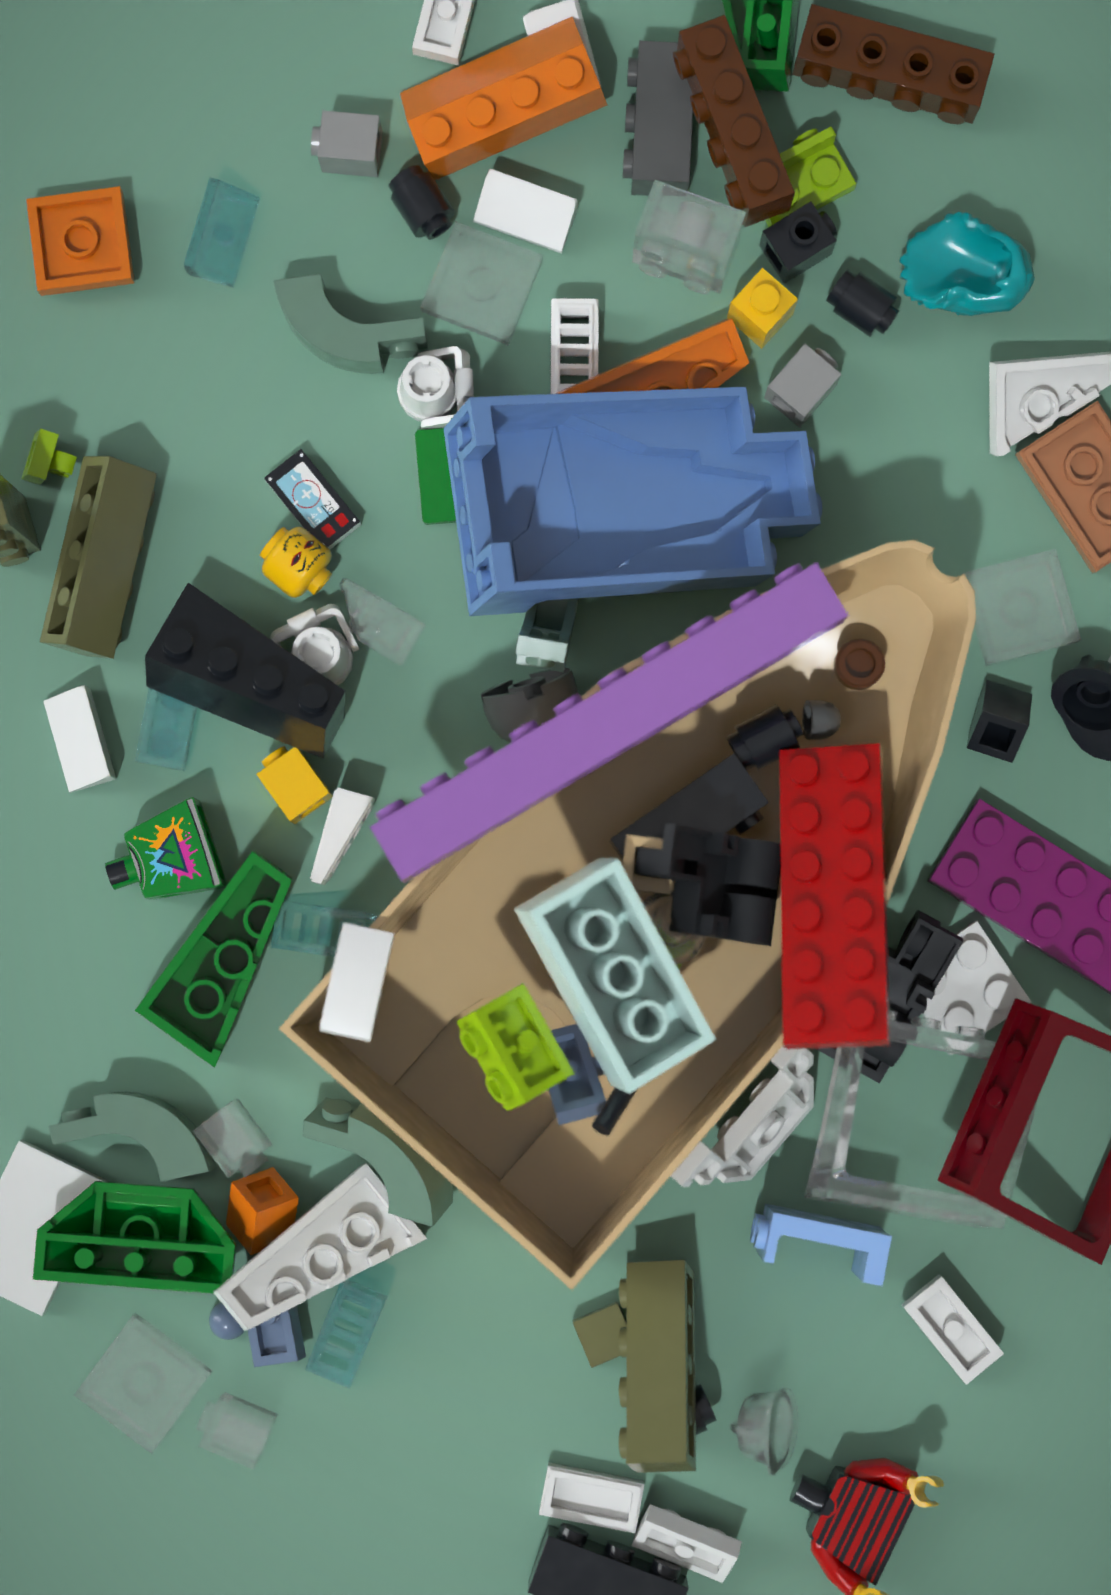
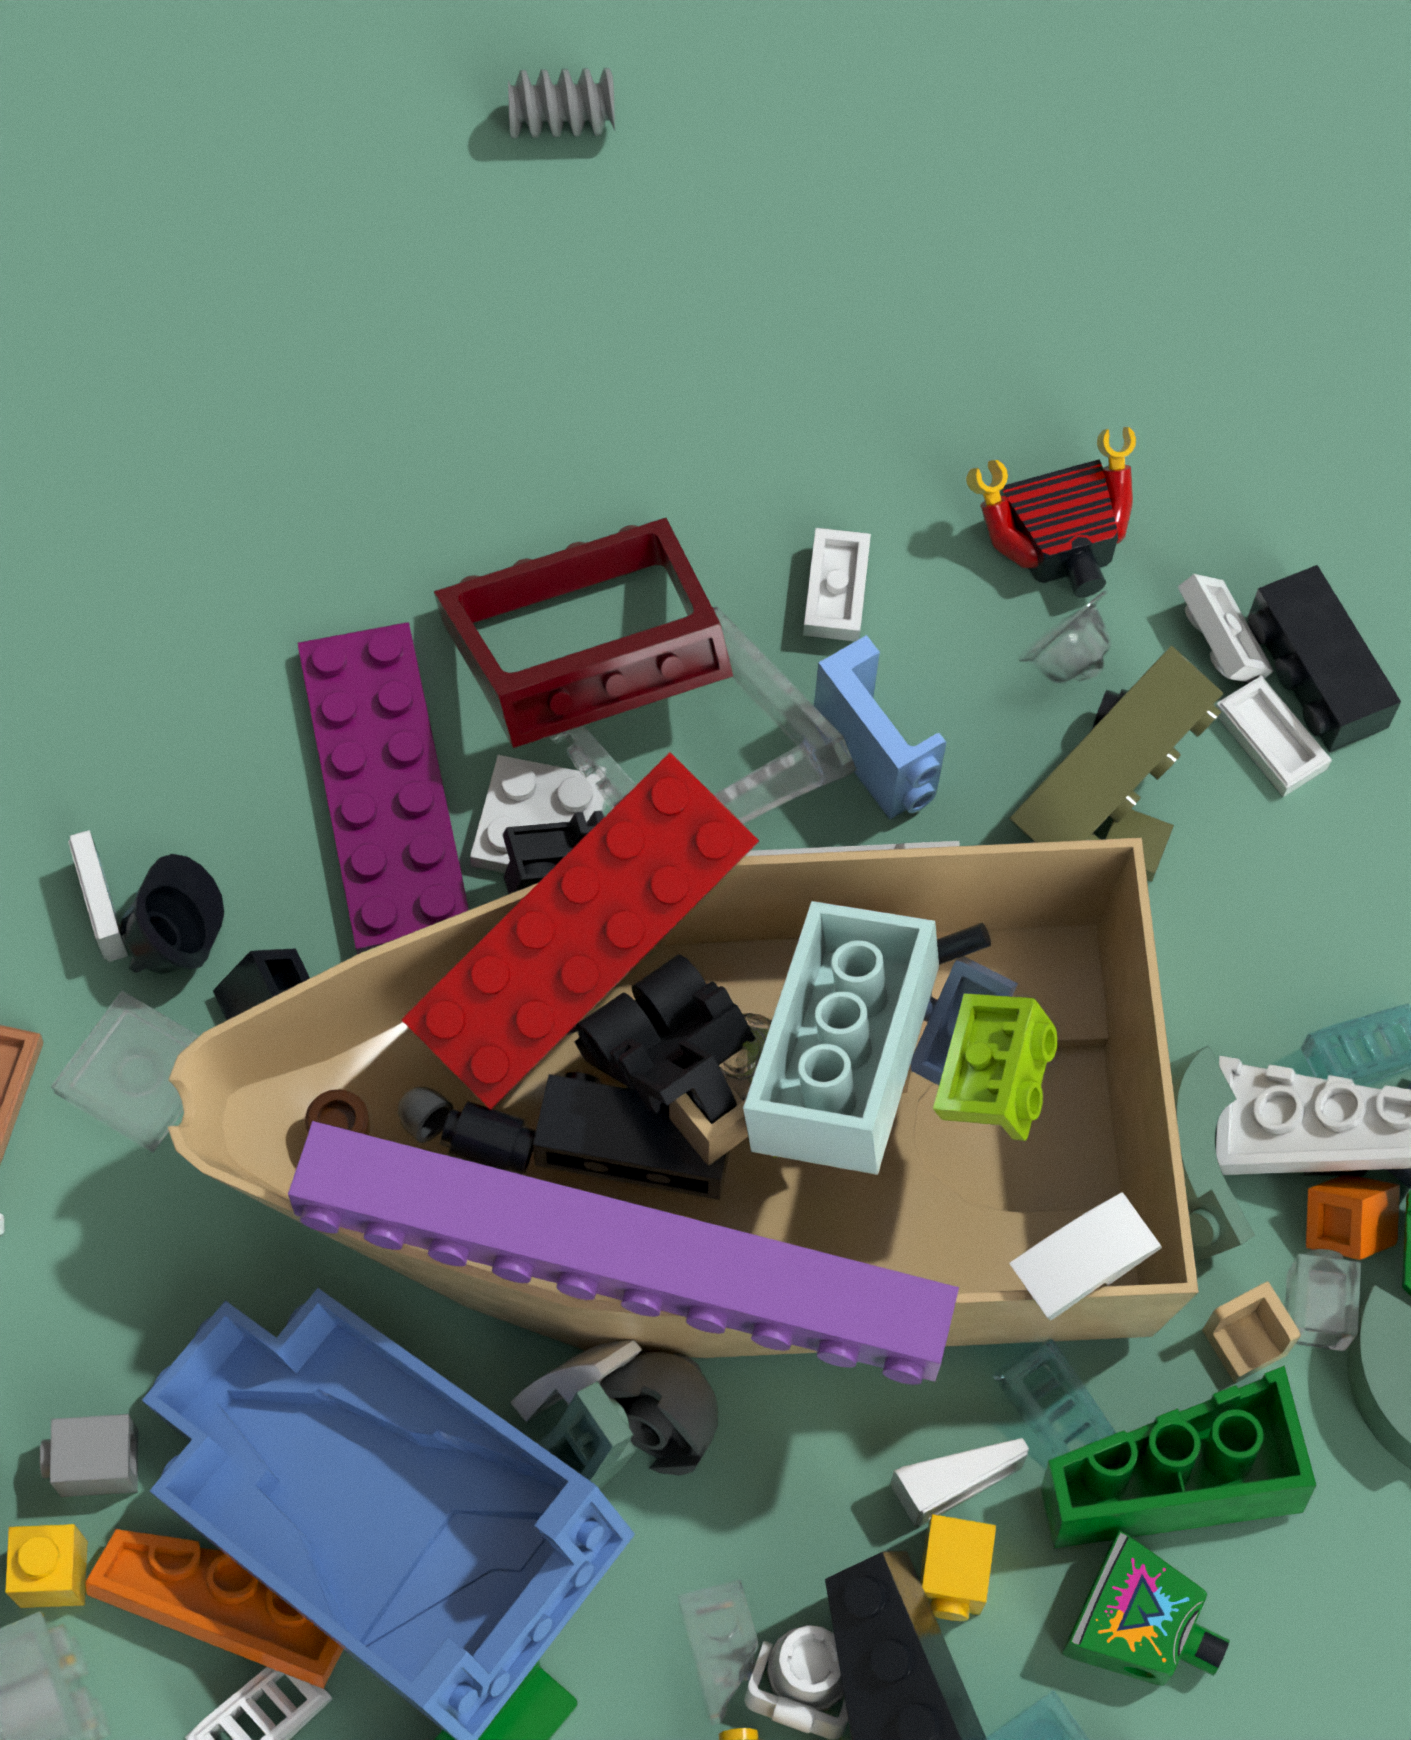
camera: 140 degrees left, 20 degrees down
(256, 1079) = (1251, 1332): none -> tan panel
(590, 667) = (574, 1376): none -> white slope

